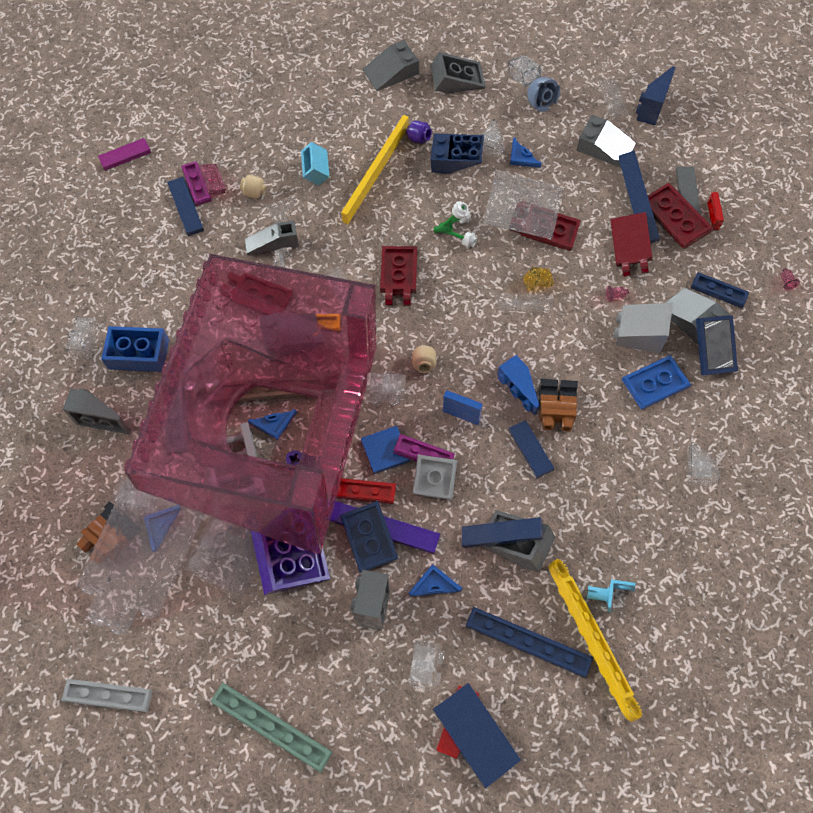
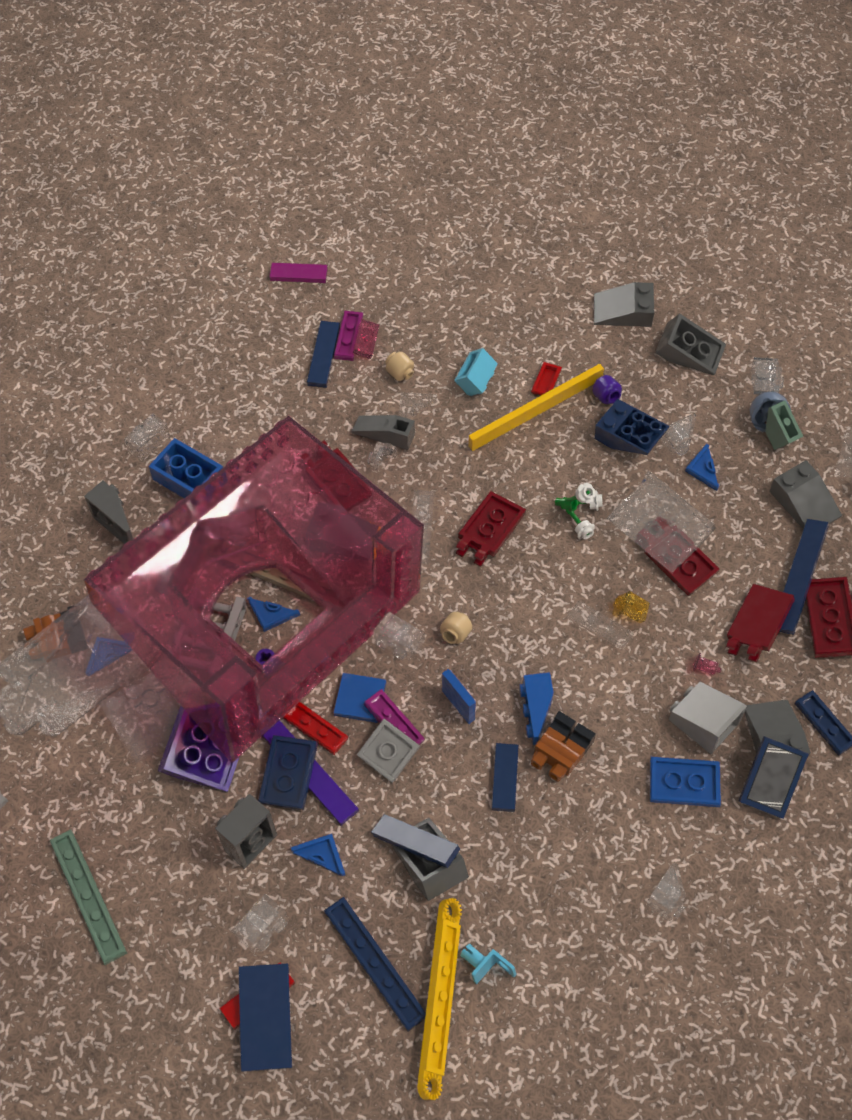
camera: 30 degrees right, 5 degrees down
(369, 146) = (546, 378): none -> red tile
(560, 99) = (781, 425): none -> sand green slope

